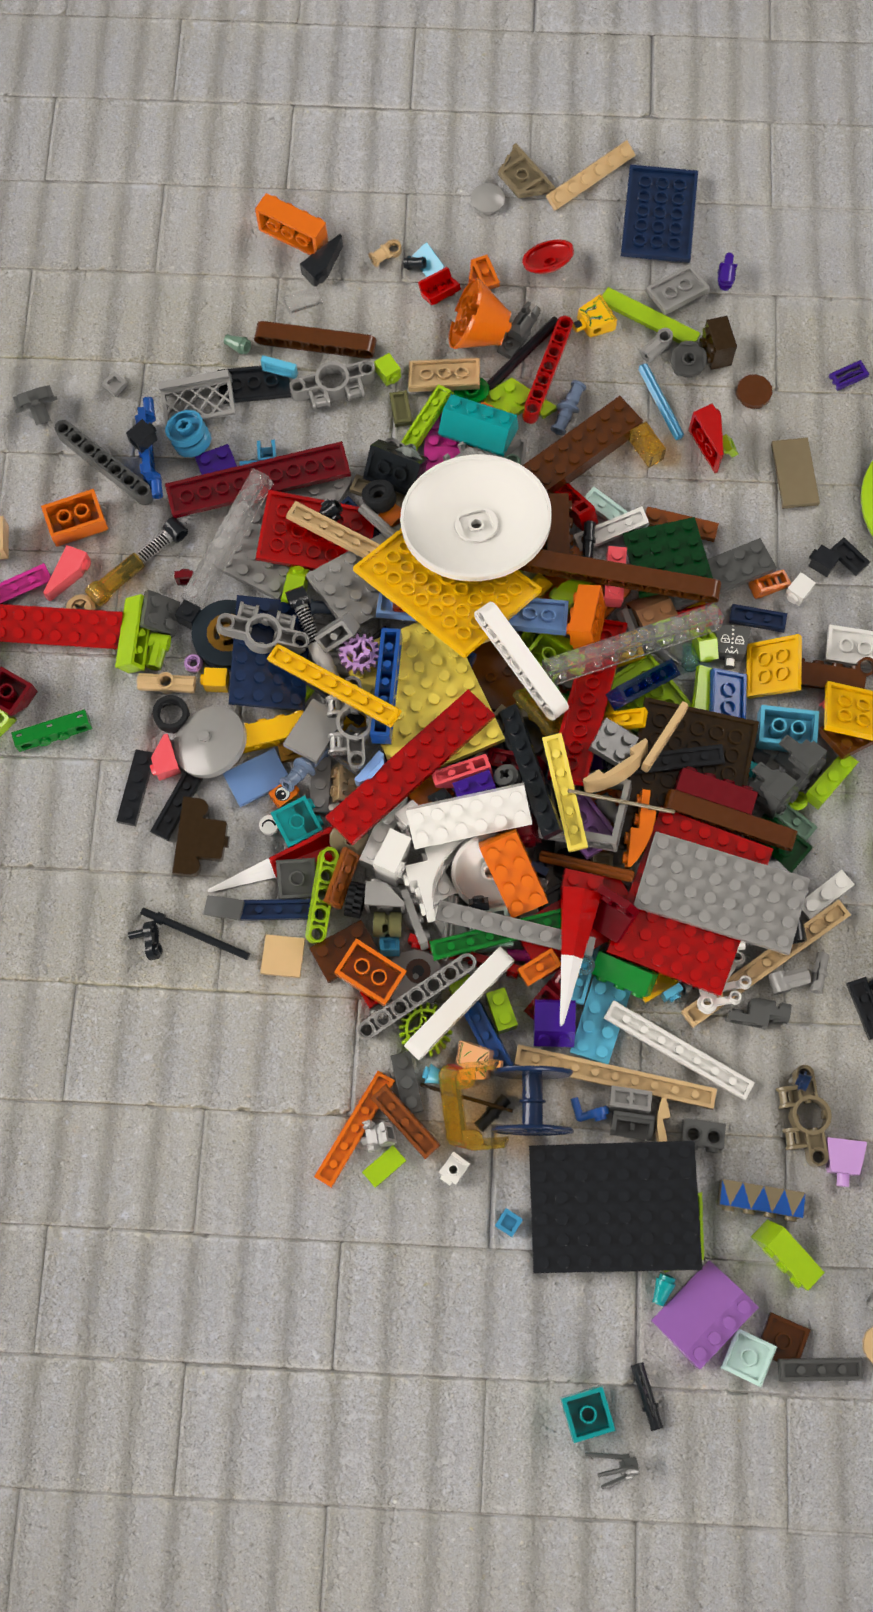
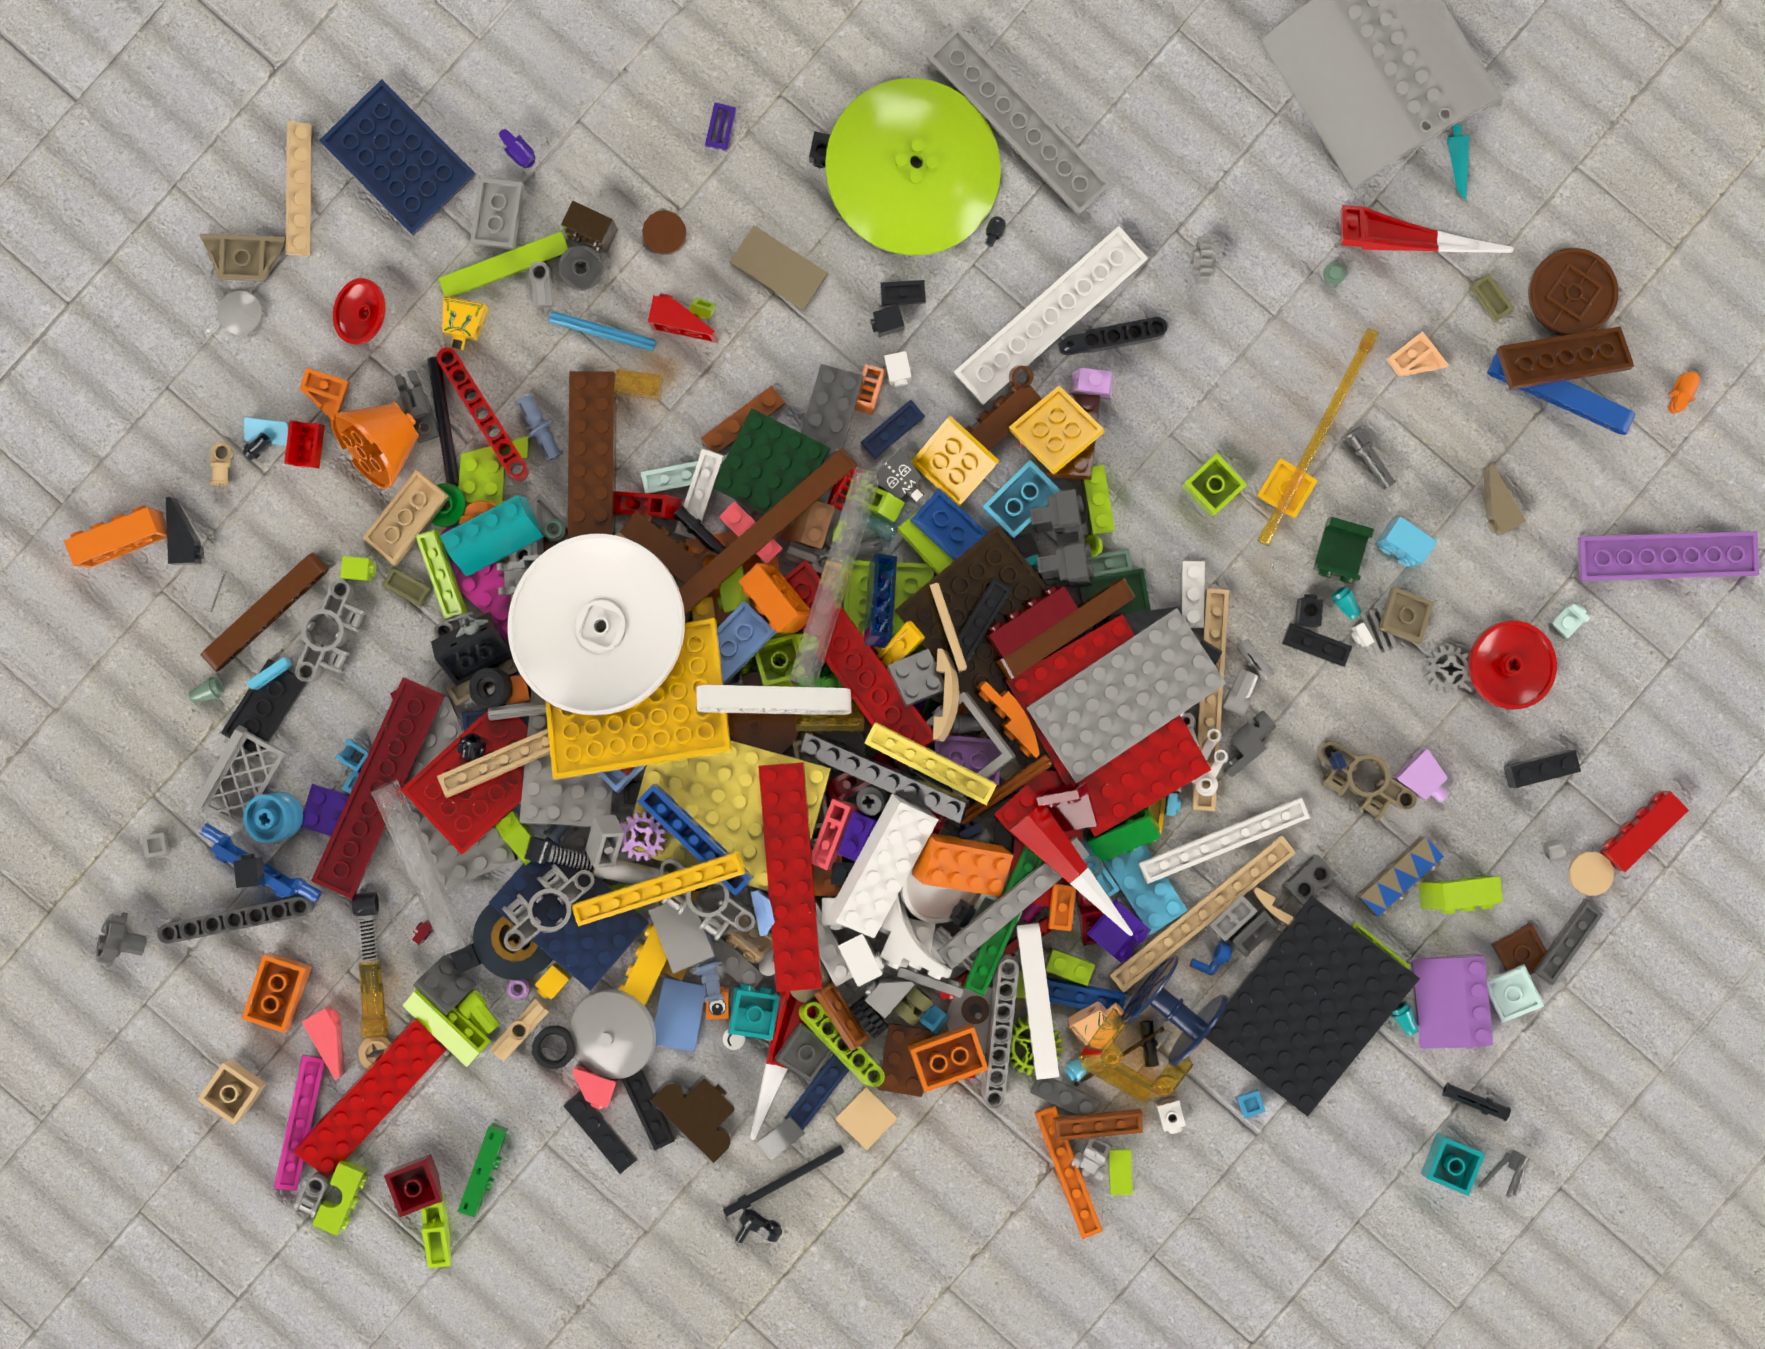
camera: 55 degrees left, 15 degrees up
(620, 801) = (978, 718): dark tan axle -> none

